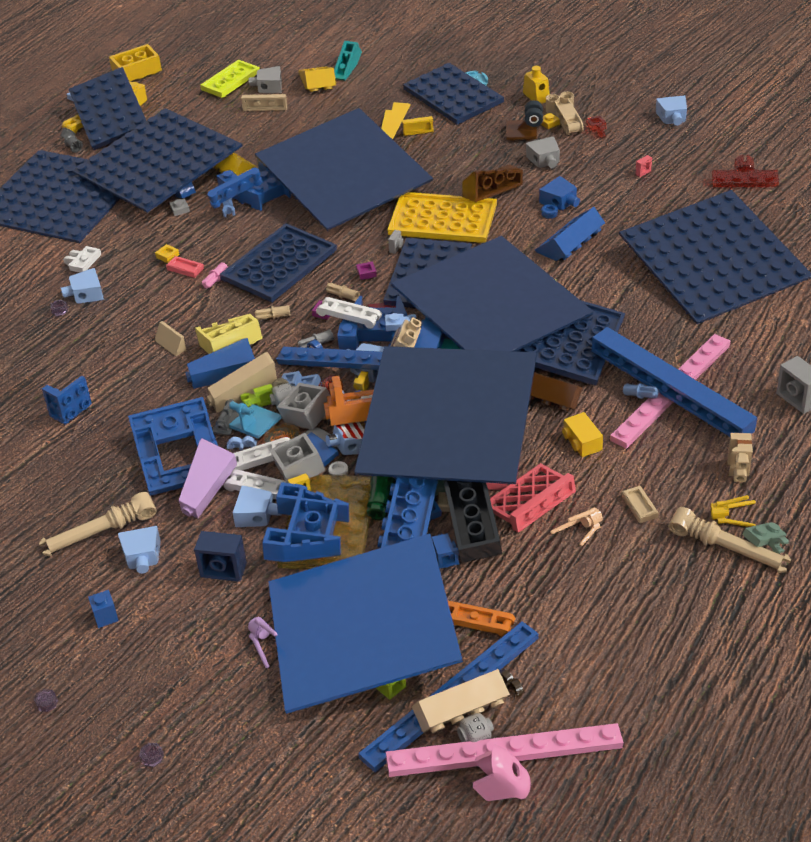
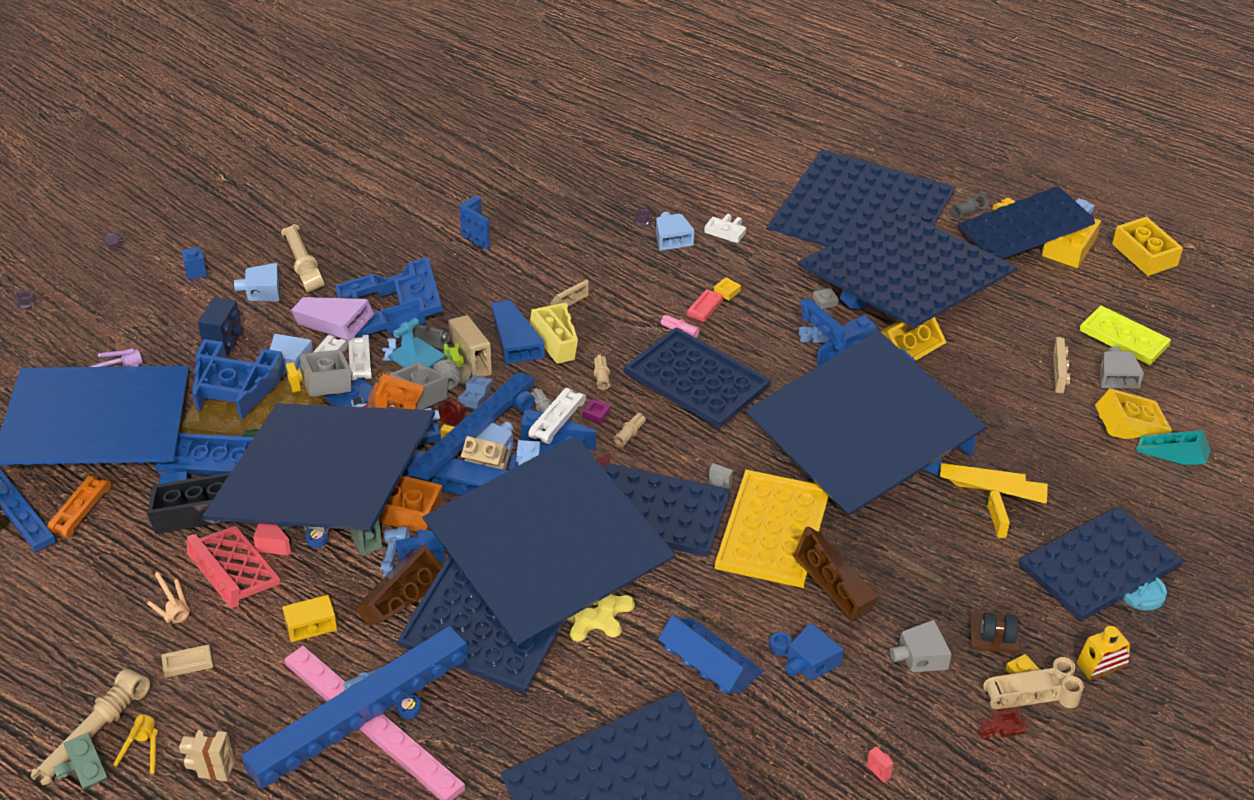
camera: 90 degrees right, 0 degrees up
(366, 270) = (666, 450): magenta plate -> none

